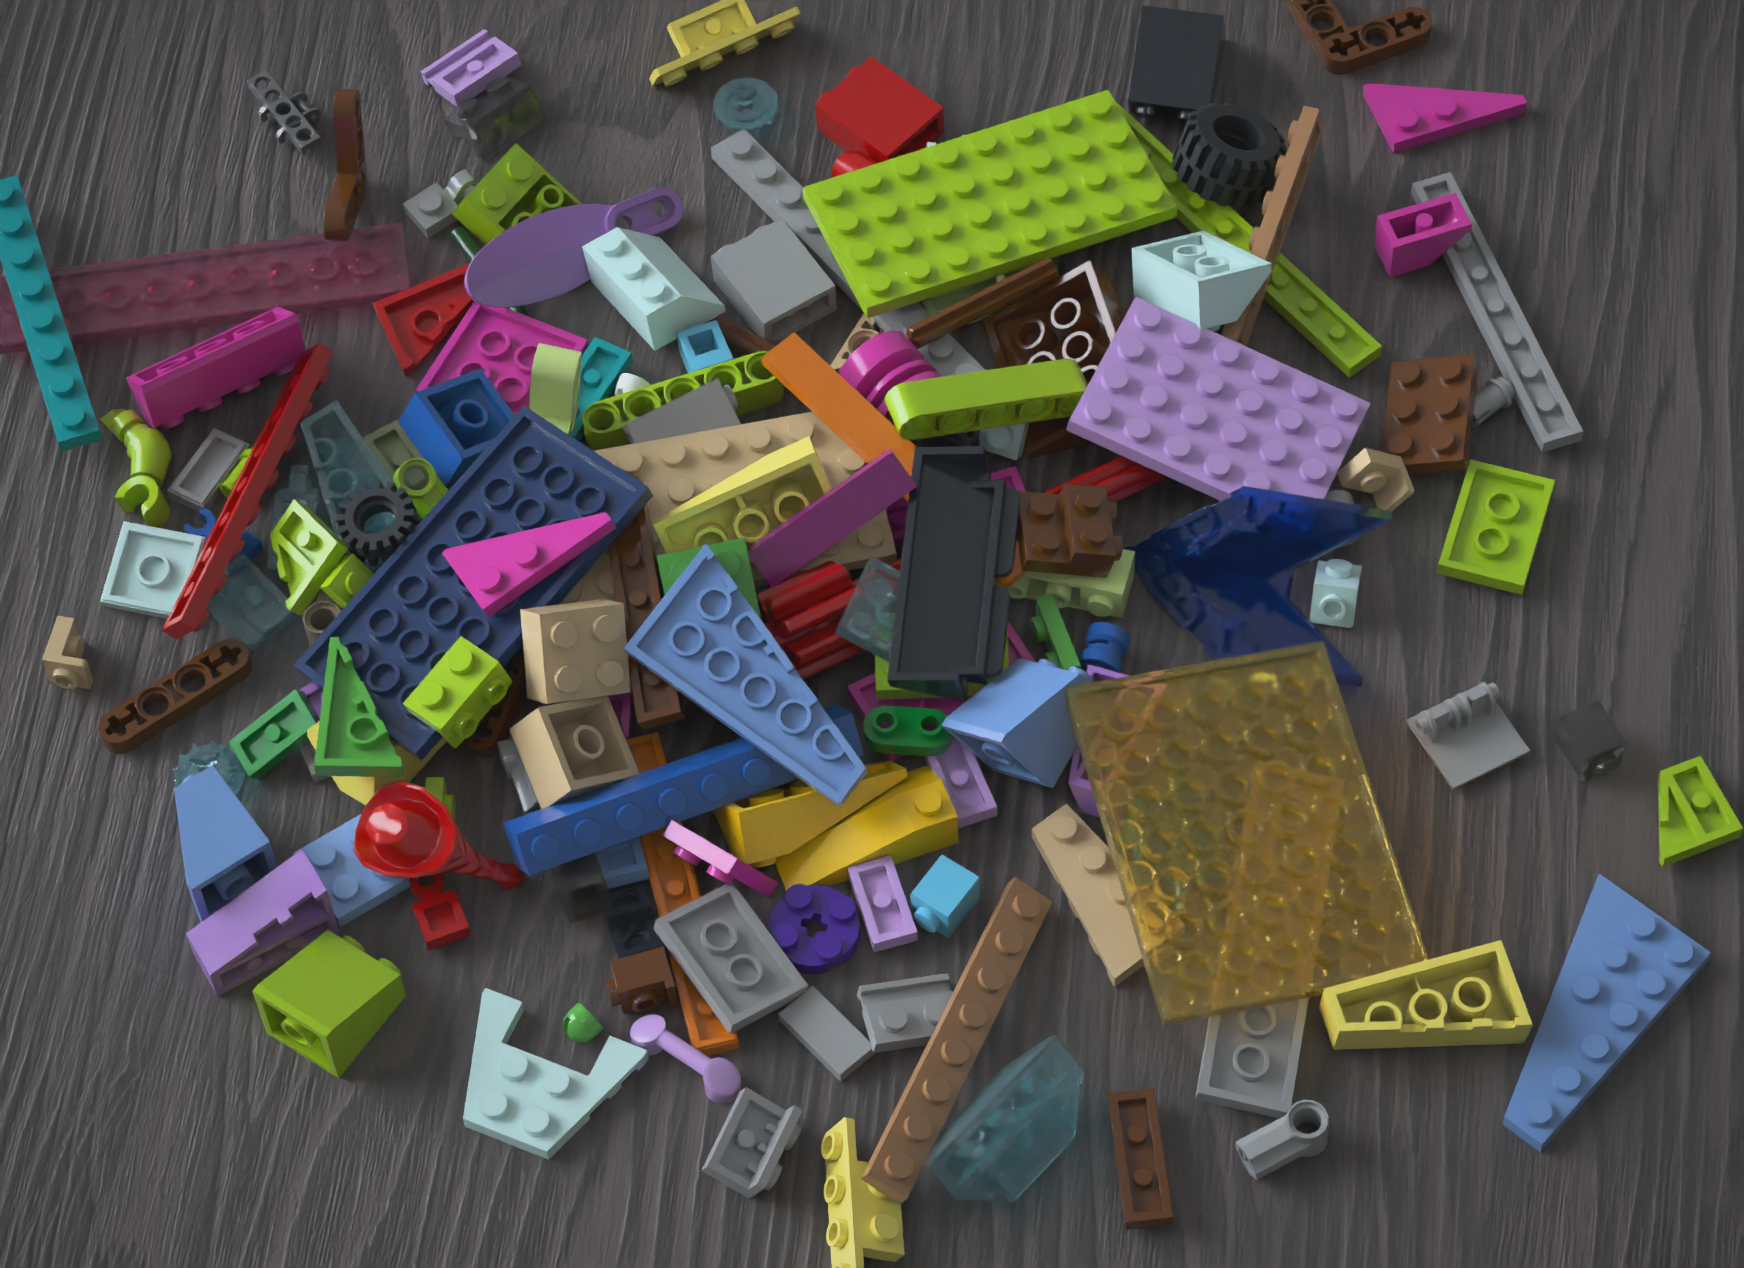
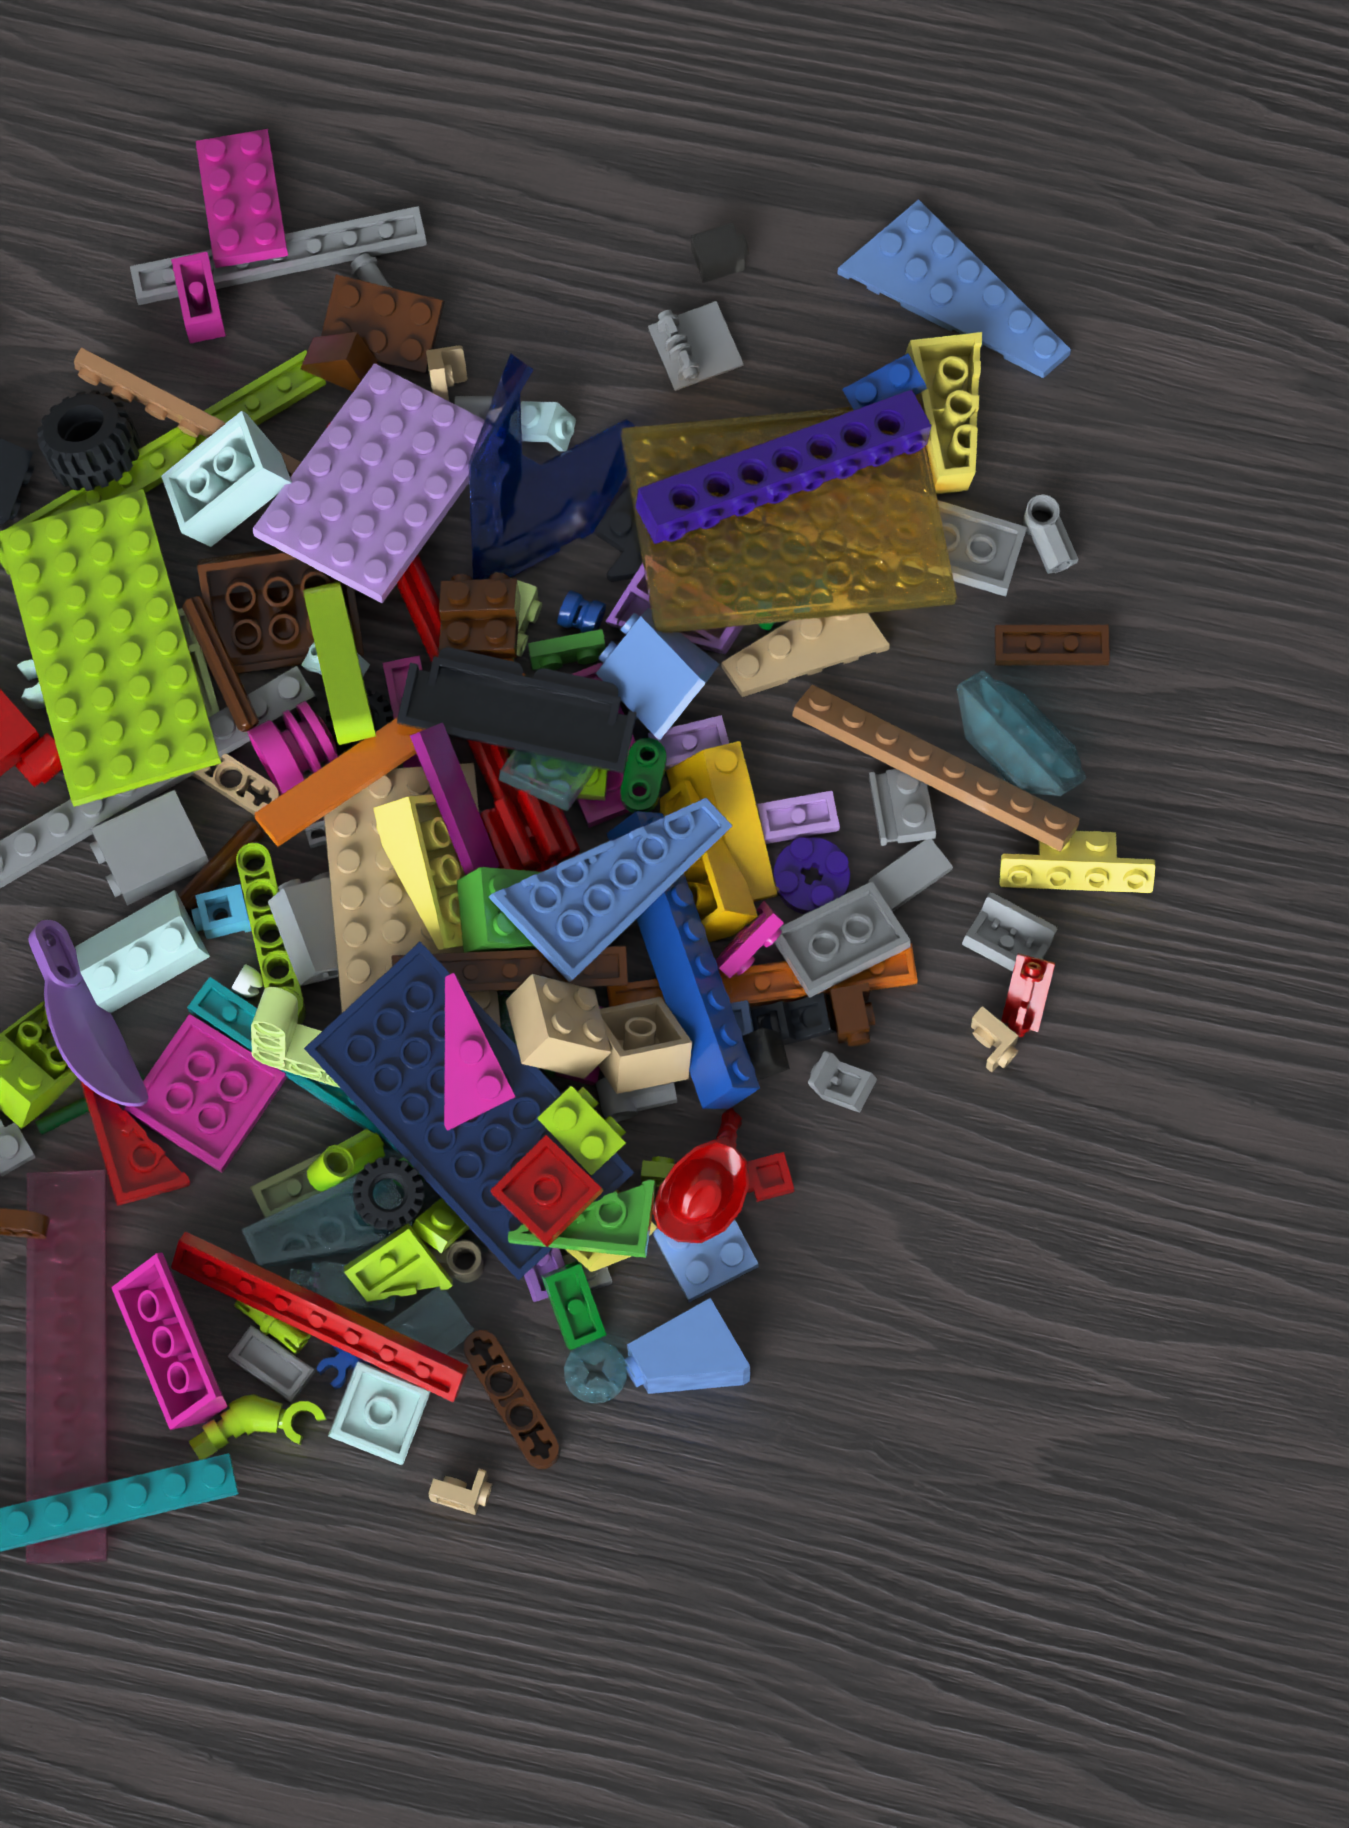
camera: 85 degrees left, 15 degrees up
(263, 925) = (764, 1323): medium lavender wedge -> none
(329, 1000) = (842, 1266): lime slope -> none
(379, 658) = (546, 1190): none -> red plate
(455, 422) = (274, 1126): blue slope -> none
(531, 1098) = (942, 1116): light aqua wing -> none
(559, 978) = (841, 1082): none -> light grey bracket
(581, 1024) = (883, 1067): bright green hinge -> none
(630, 1140) = (993, 1032): none -> tan bracket
(676, 1164) = (1027, 994): none -> hinge
(720, 1075) = (896, 1011): lavender bar -> none
(944, 897) = (800, 766): medium azure brick -> none
(1225, 673) = (795, 451): none -> dark purple brick
(1374, 377) = (339, 359): none -> reddish brown slope
(1423, 115) = (53, 280): dark pink wing -> none
(1430, 917) = (885, 382): none -> blue plate
(1496, 527) = (500, 290): lime plate -> none
(1556, 263) = (241, 198): none -> dark pink plate
(1692, 812) = (791, 190): lime wing -> none

